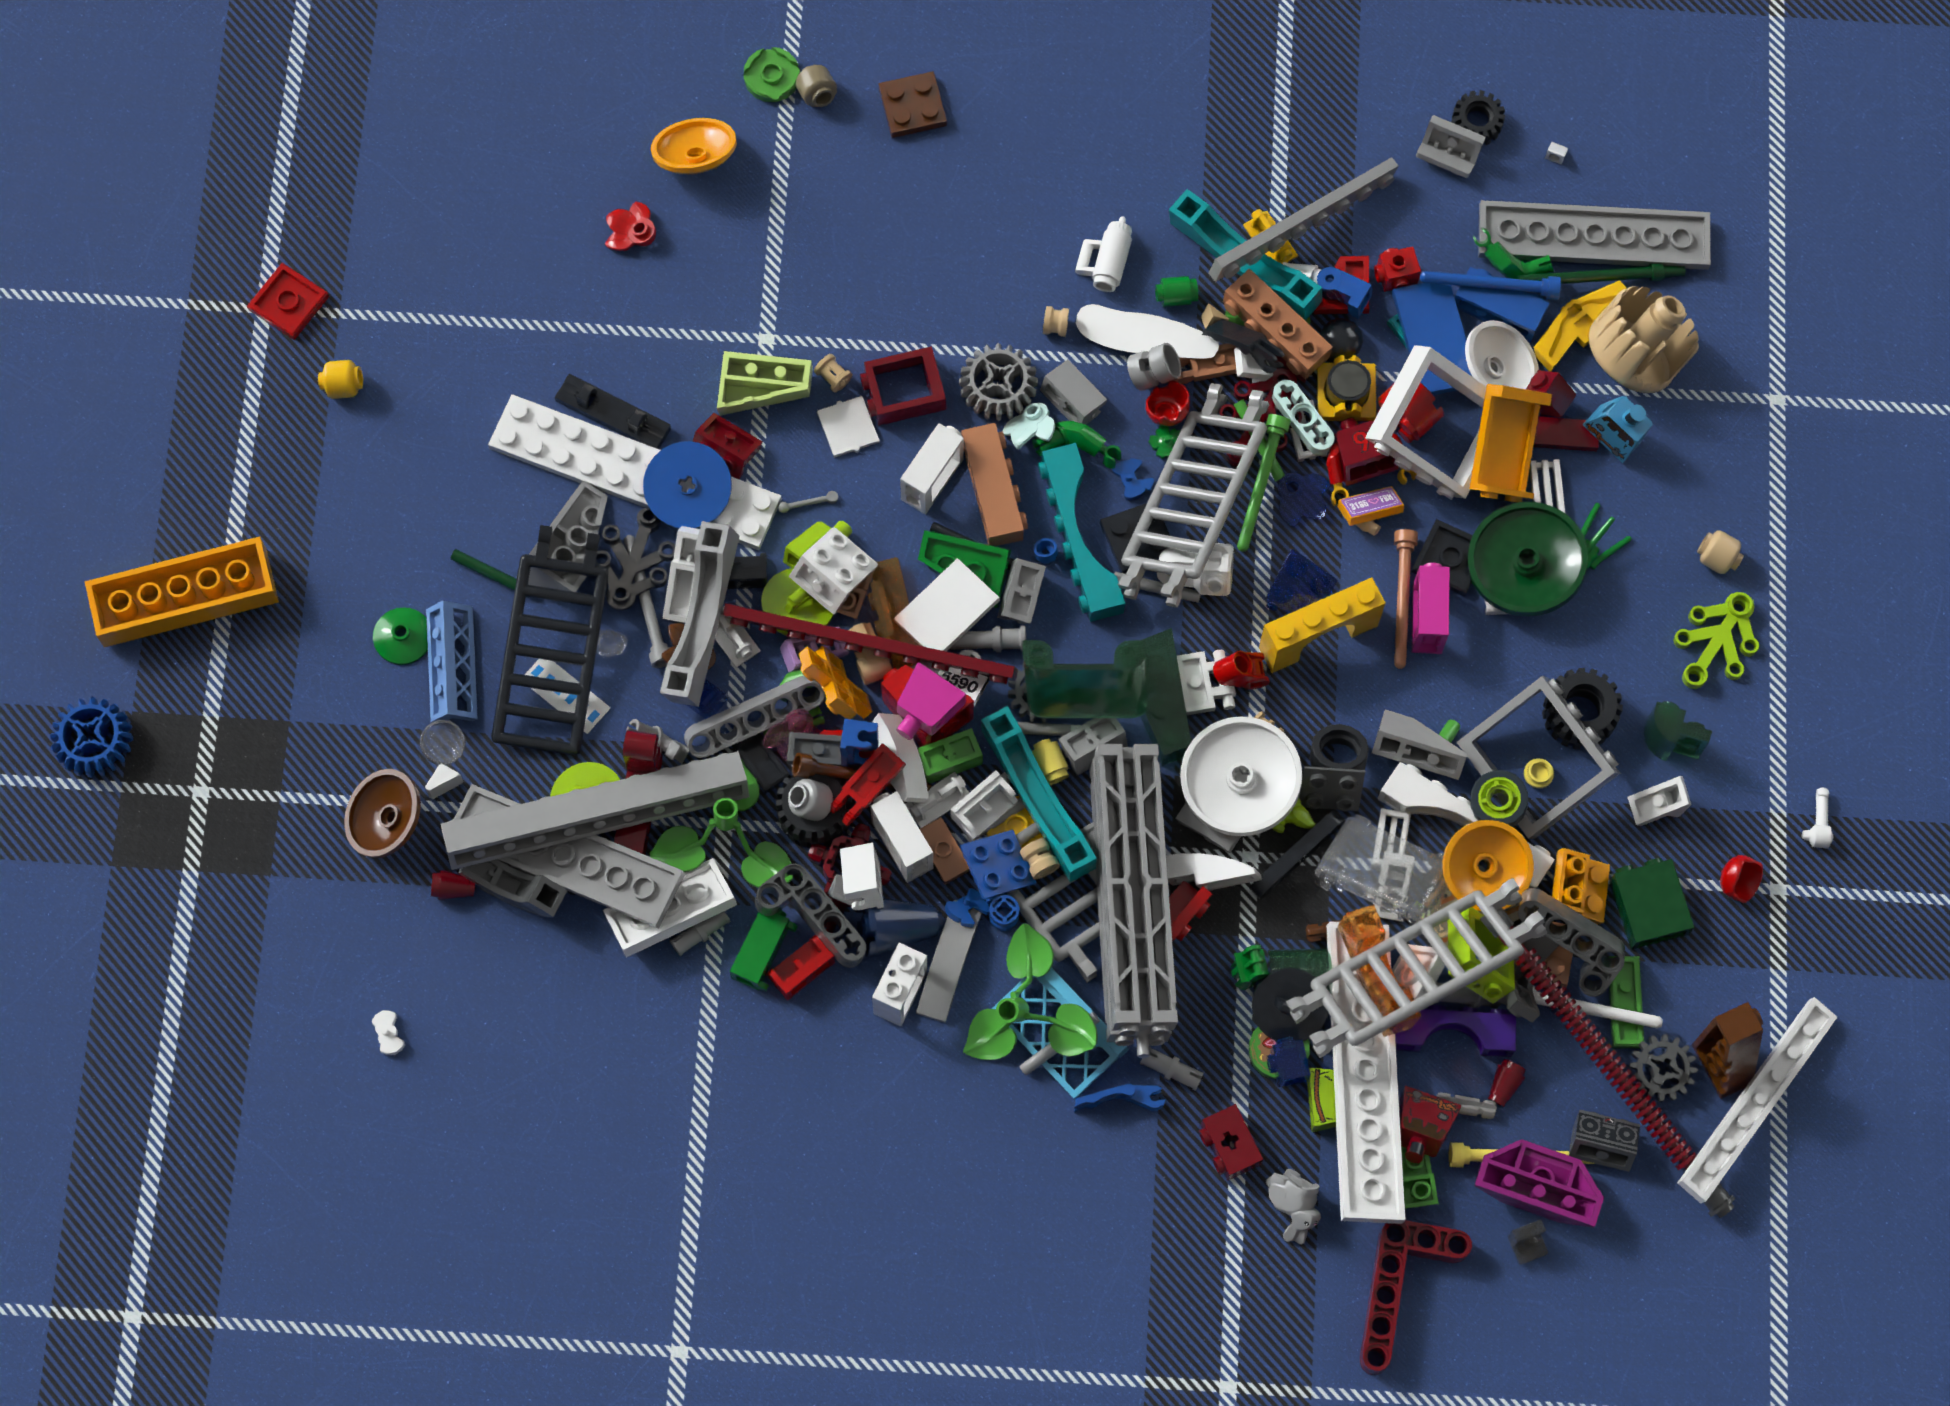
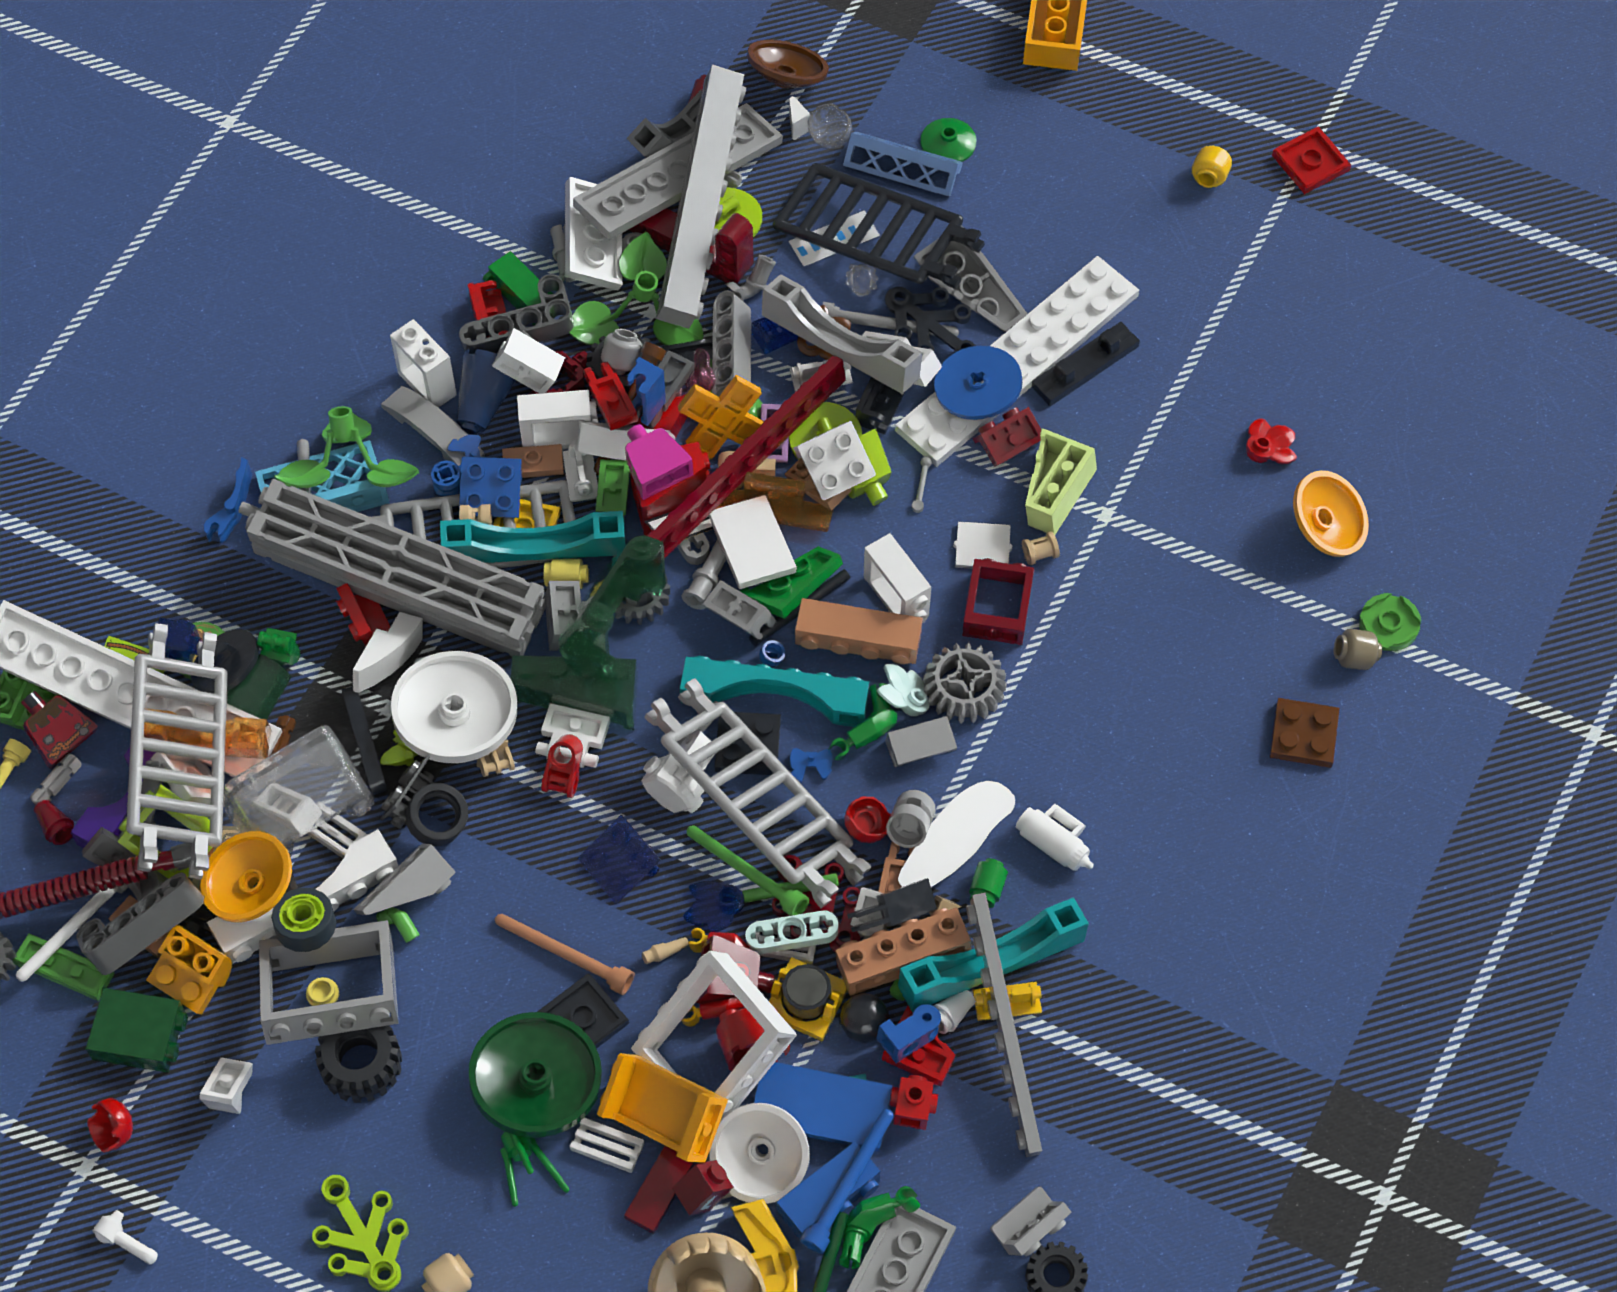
camera: 115 degrees right, 10 degrees down
(387, 1032) = (603, 17): white piece -> none
(484, 569) = (985, 212): dark green bar -> none
(984, 805) = (549, 495): white hinge -> none
(1056, 321) = (1005, 759): tan wheel -> none
(1163, 441) = (835, 807): green plant -> none
(1173, 1068) = (230, 558): light grey pin -> none
(1245, 1153) = (140, 572): dark red brick -> none
(1296, 1198) = (60, 596): light grey animal -> none
(1354, 607) = (564, 827): yellow arch -> none
(1370, 506) = (670, 958): tile -> none
(1430, 609) = (531, 956): dark pink window -> none
(1619, 426) = (631, 1235): dark azure torso -> none
(1668, 733) = (286, 1120): clear green brick -> none

